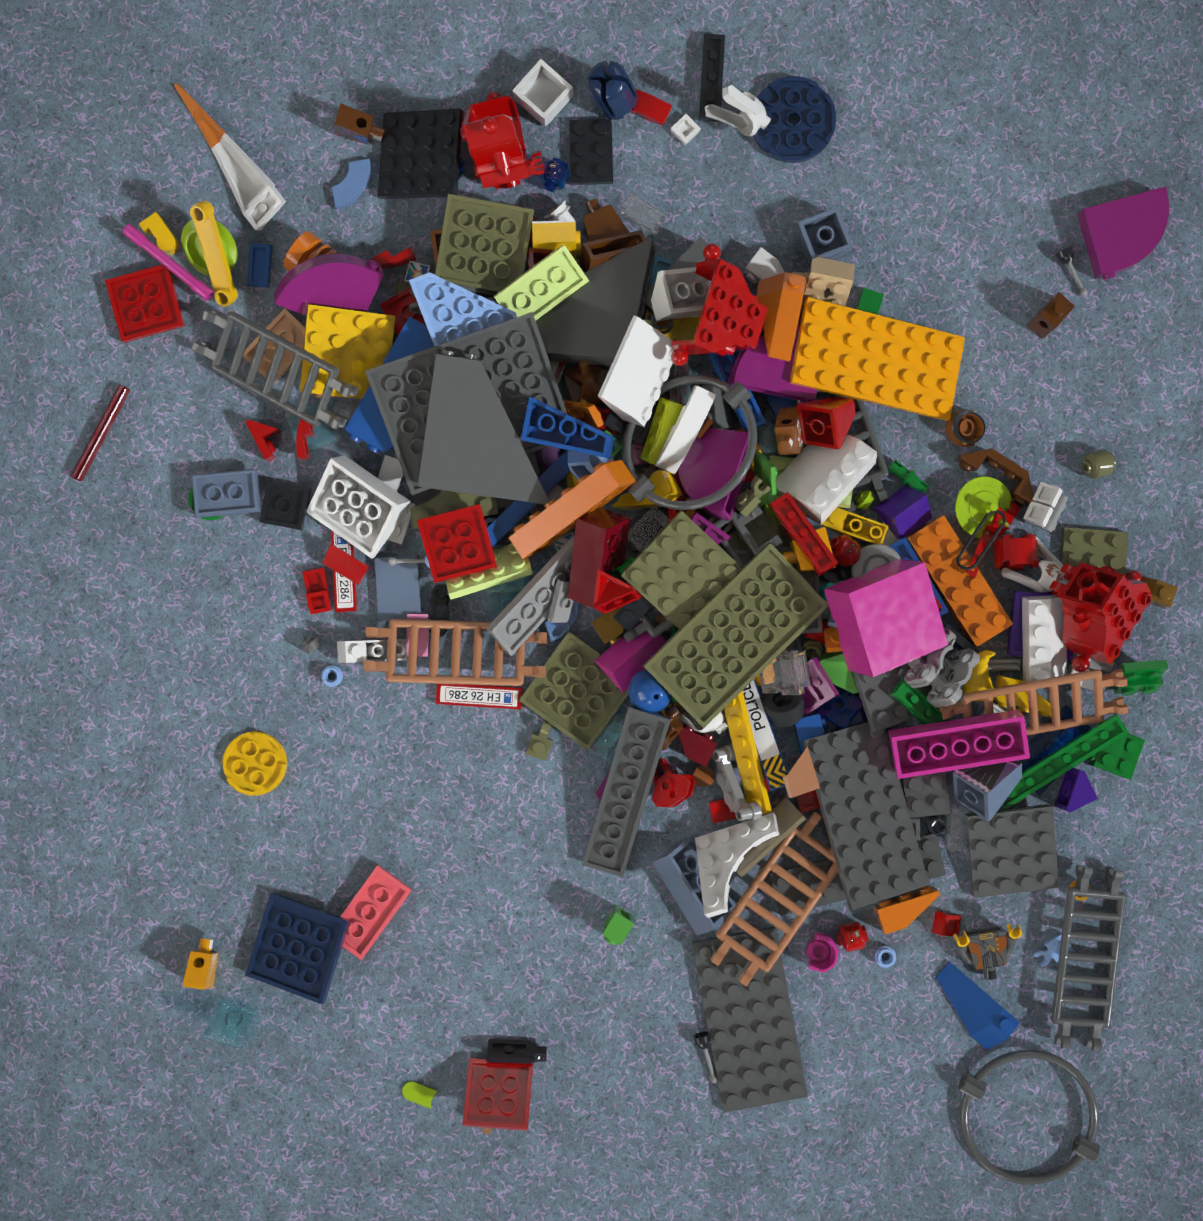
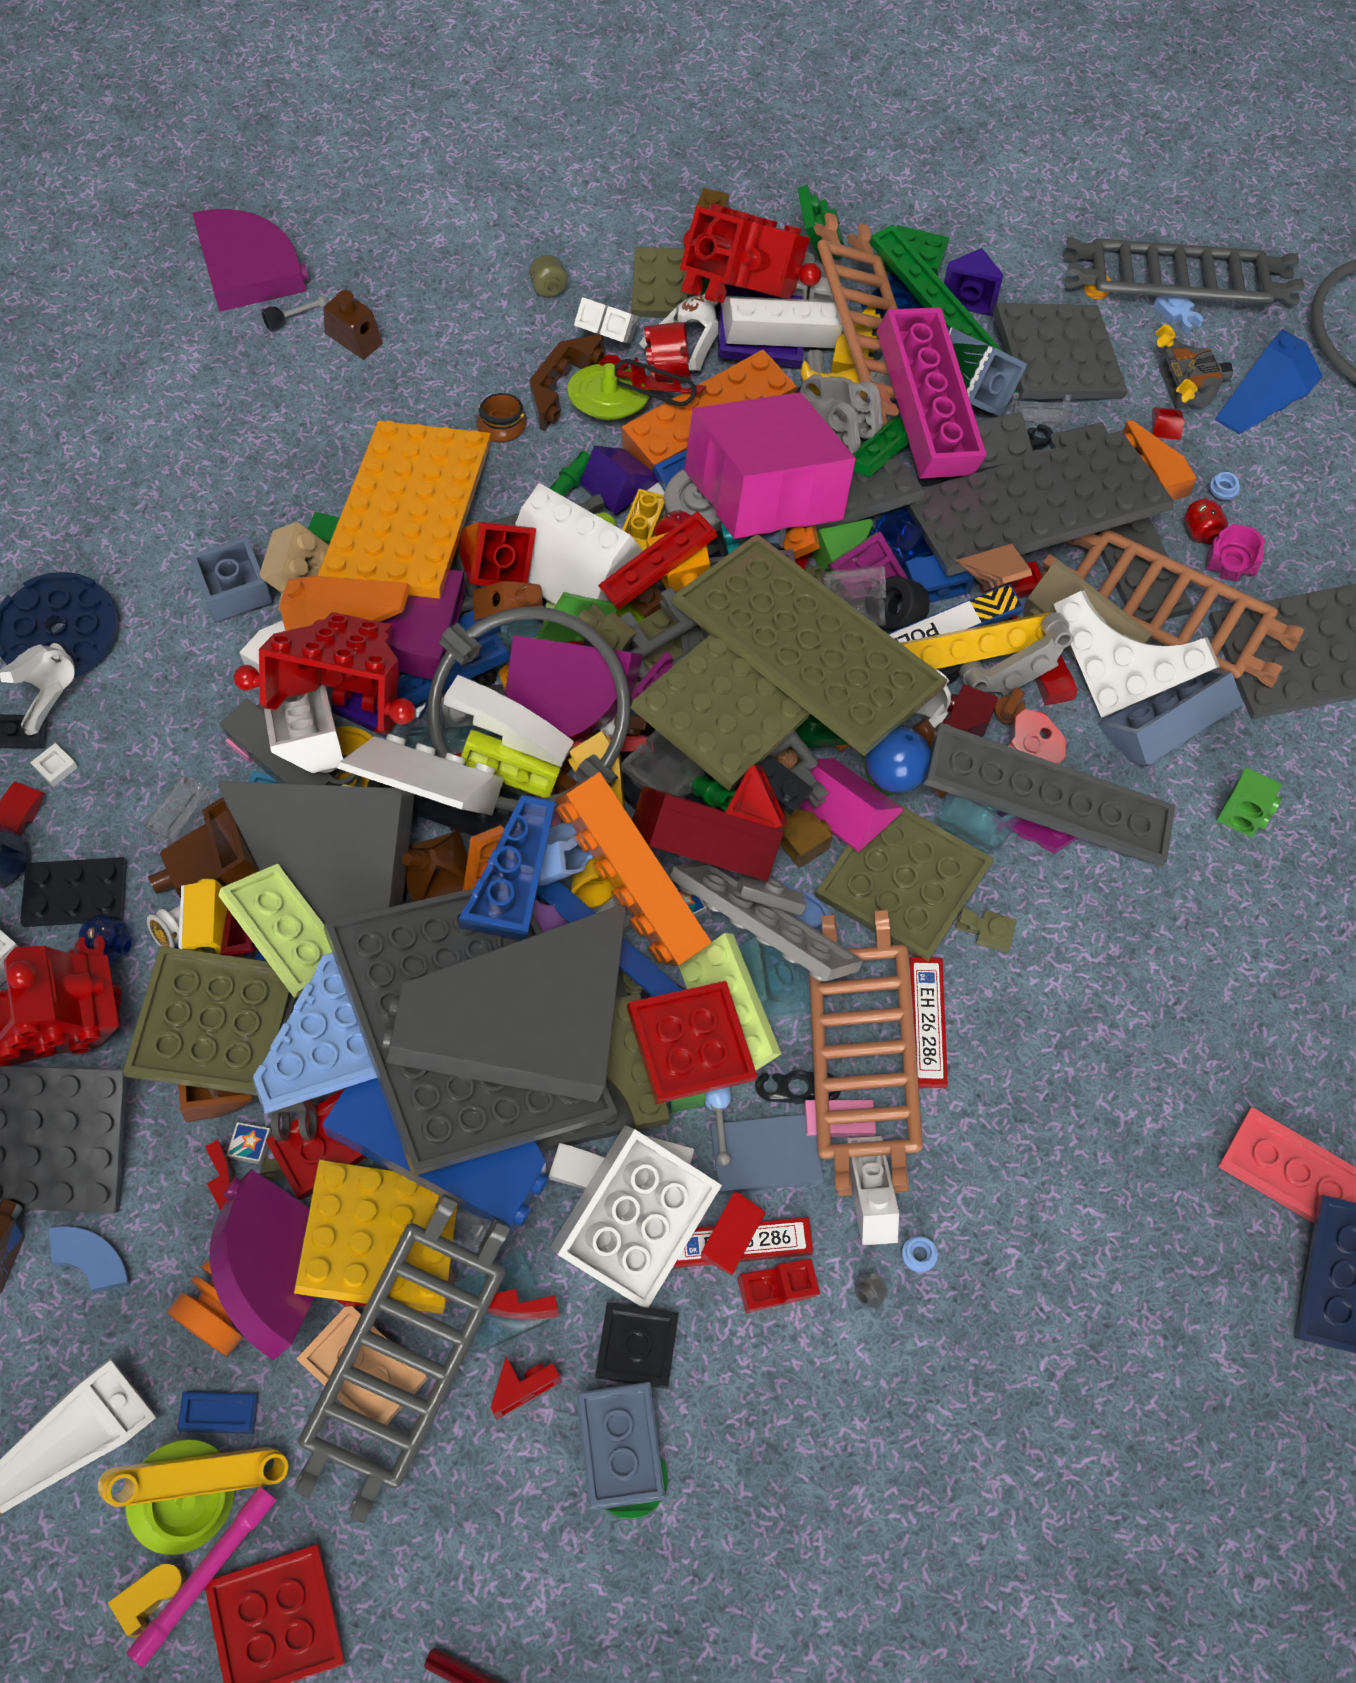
camera: 90 degrees left, 25 degrees down
(254, 763) = (1082, 1381): yellow tile -> none

